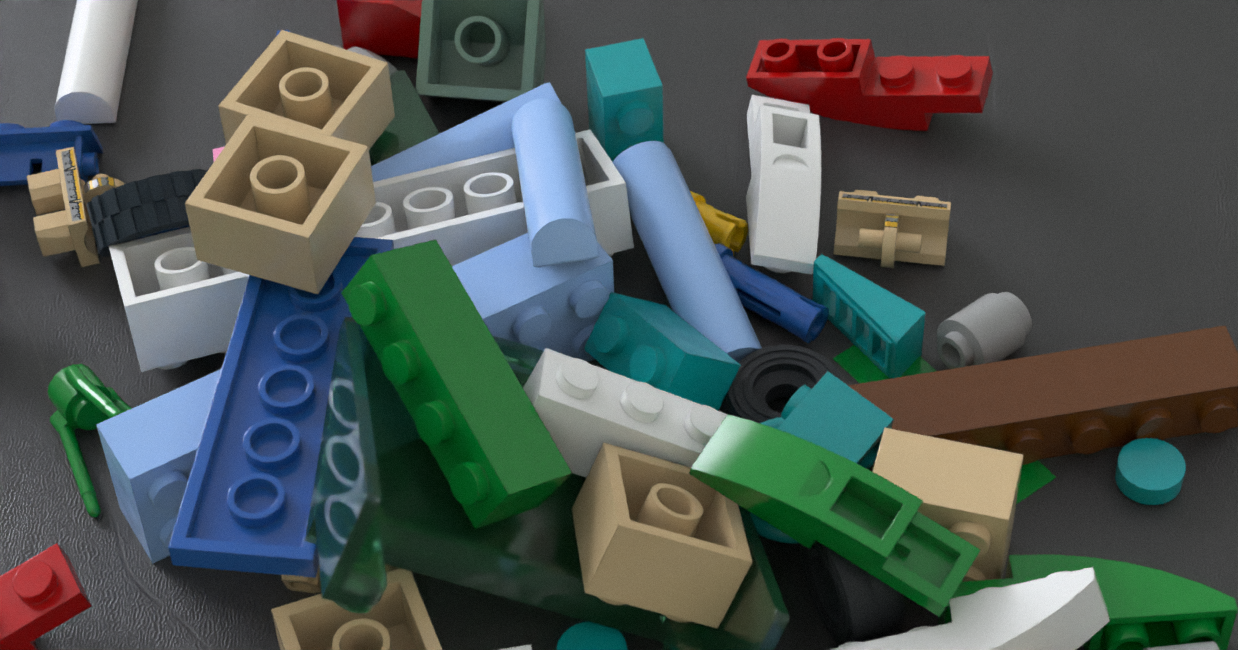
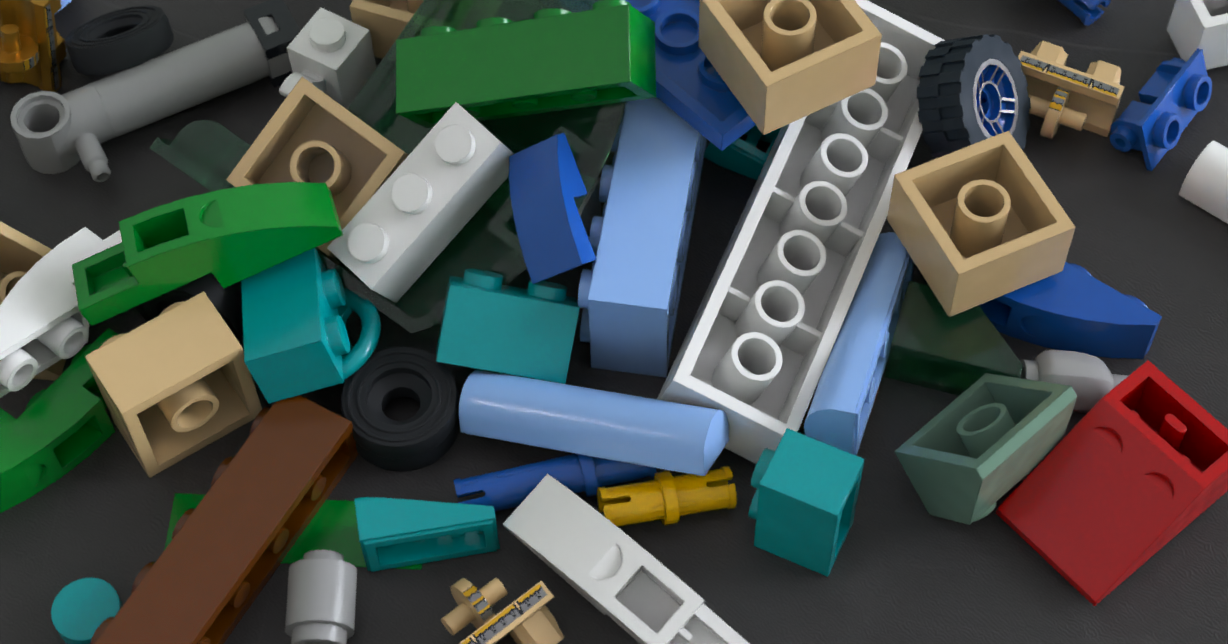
camera: 130 degrees right, 10 degrees up
(553, 185) = (703, 308): light blue brick -> none
(558, 319) = (547, 221): none -> blue slope

